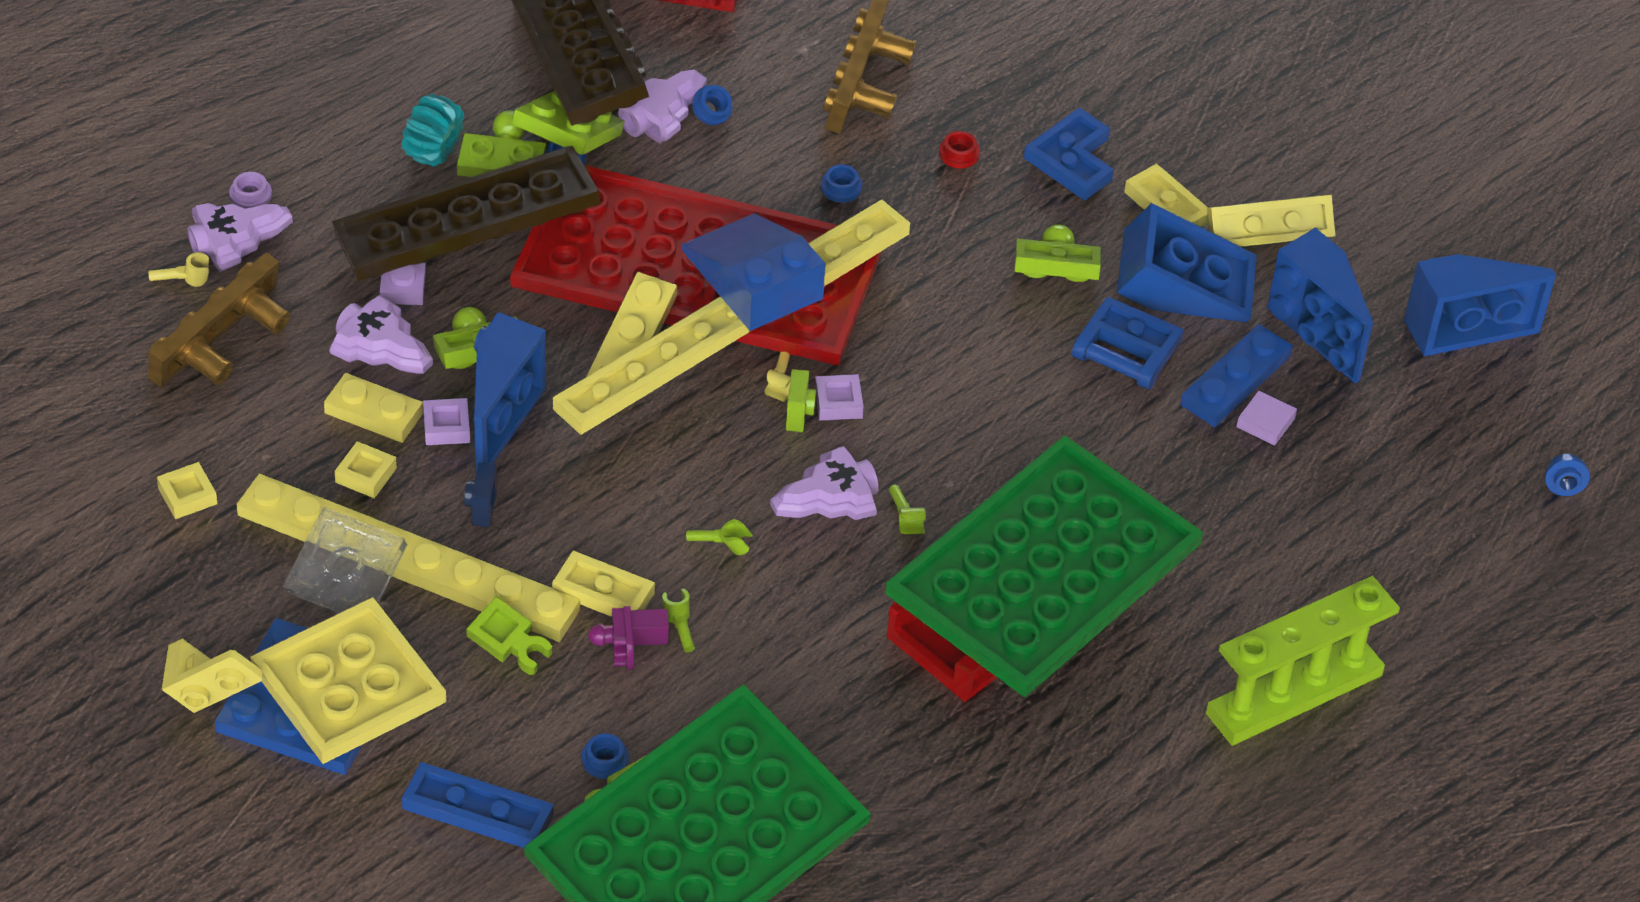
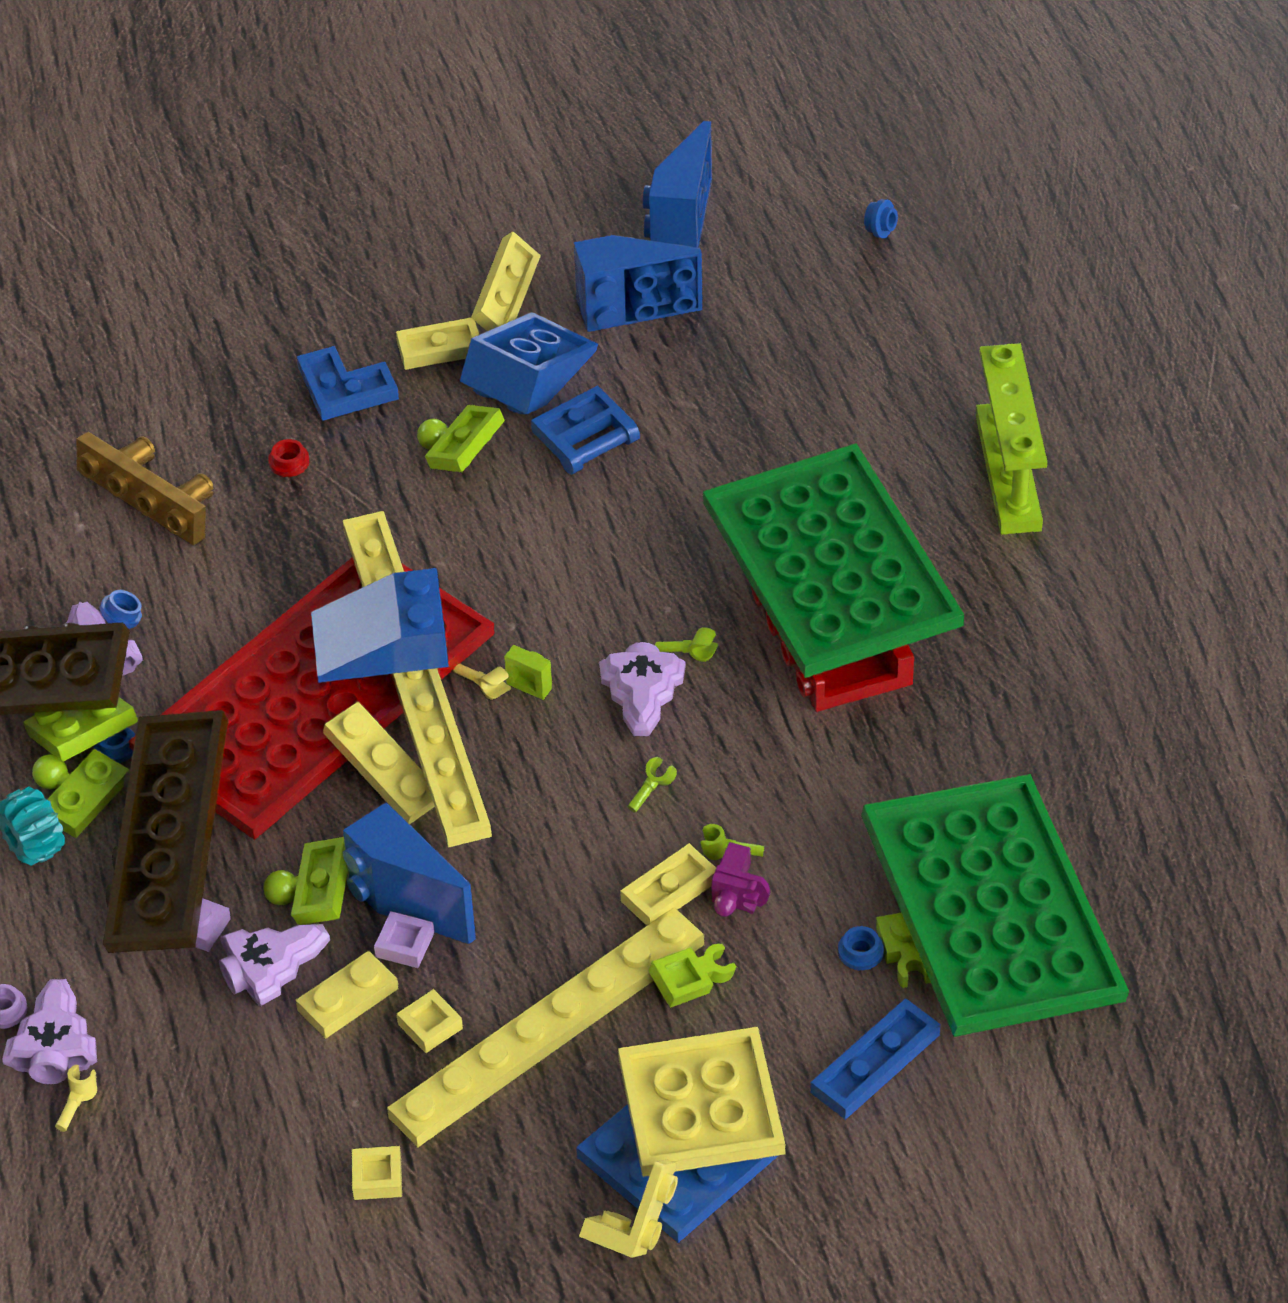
camera: 60 degrees left, 0 degrees up
(223, 309) = (173, 1098): pearl gold plate -> none
(344, 562) = (544, 1070): clear plate -> none
(482, 494) = (514, 937): dark blue plate -> none
(839, 397) = (540, 638): lavender plate -> none
(841, 183) = (278, 554): blue plate -> none
(1236, 375) = (657, 376): blue plate -> none
(1266, 418) = (715, 375): lavender tile -> none

